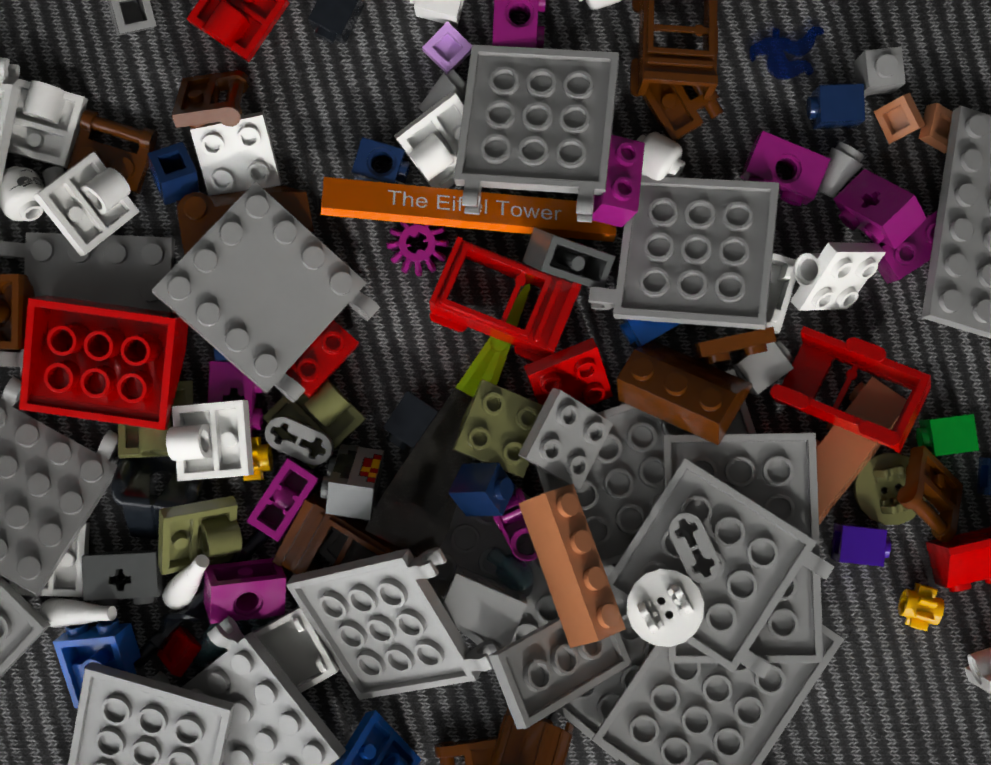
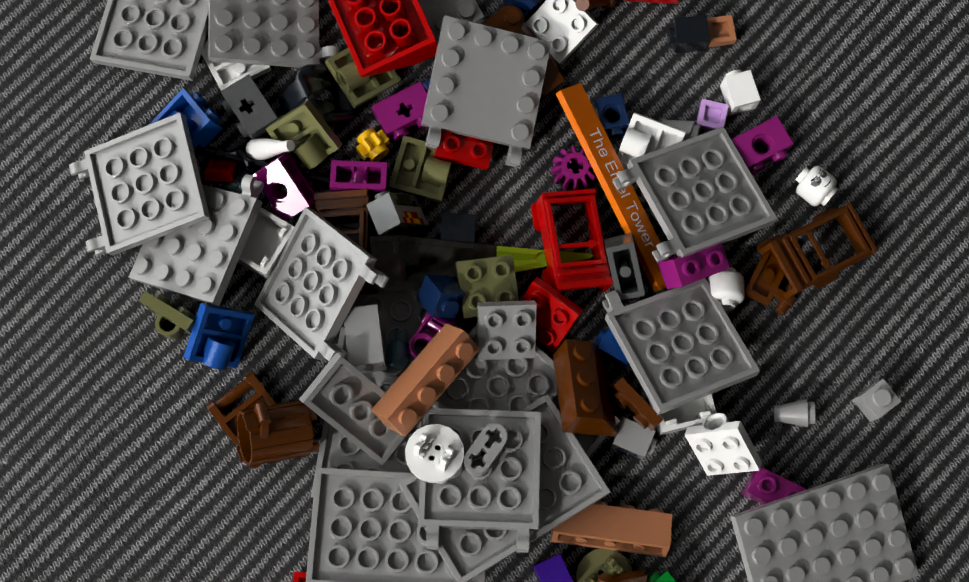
camera: 60 degrees right, 10 degrees down
(69, 612) = (207, 89): white piece -> none
(211, 440) = (370, 109): white plate -> none
(296, 448) = (396, 166): light grey beam -> none
(777, 62) = (840, 331): clear blue piece -> none
(805, 166) = (779, 361): magenta brick -> none
(813, 365) = (656, 473): red piece -> none
(836, 106) = (835, 386): dark blue brick -> none
(879, 209) = (785, 451): magenta brick -> none
(899, 118) = (855, 433): nougat plate -> none
(937, 127) = (865, 459): nougat plate -> none

